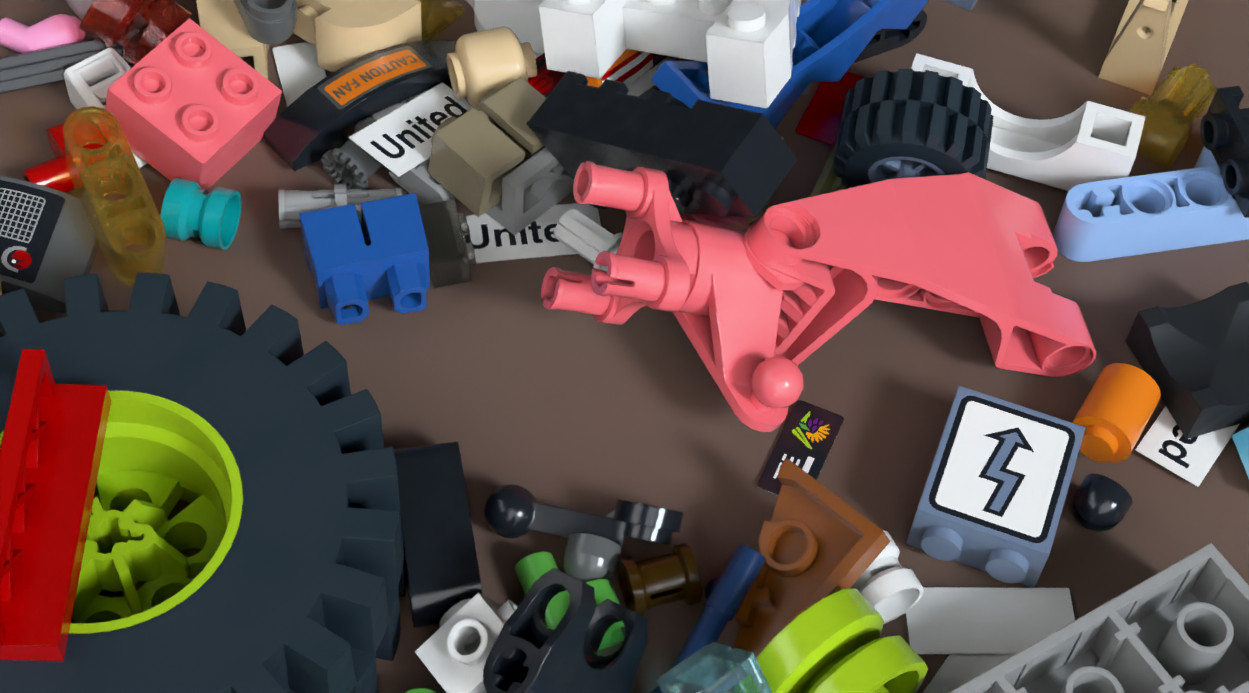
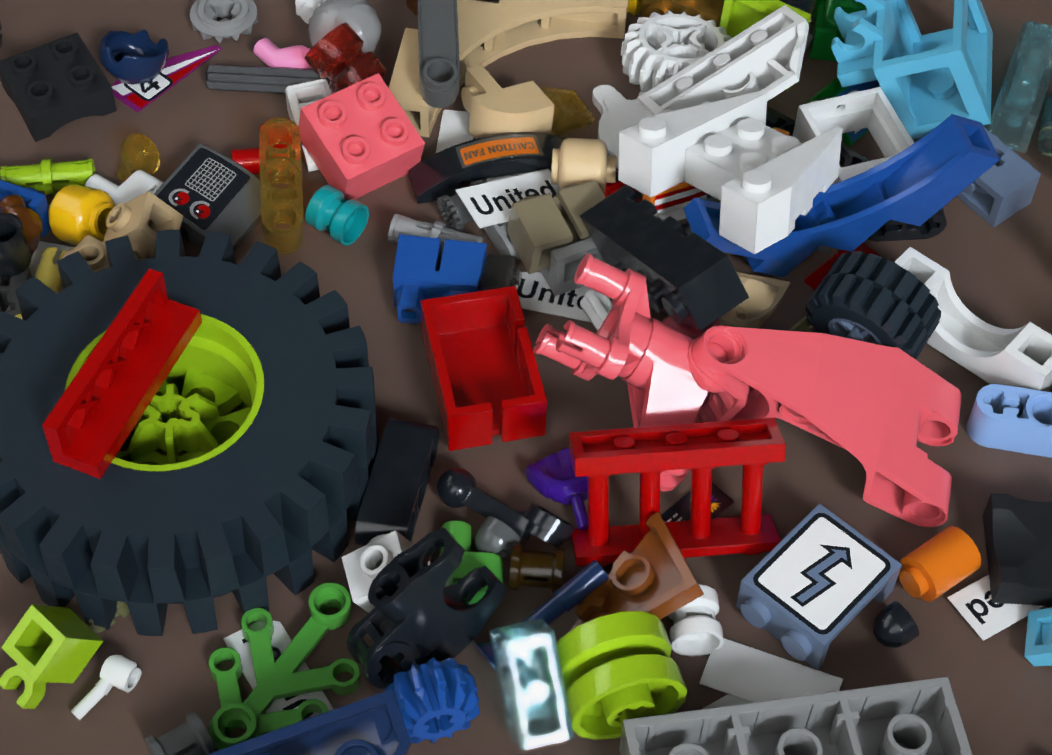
camera: 25 degrees right, 0 degrees up
(468, 362) = (483, 368): none -> red piece
(641, 453) = (556, 480): none -> dark purple piece
(778, 375) = (675, 448): none -> red fence

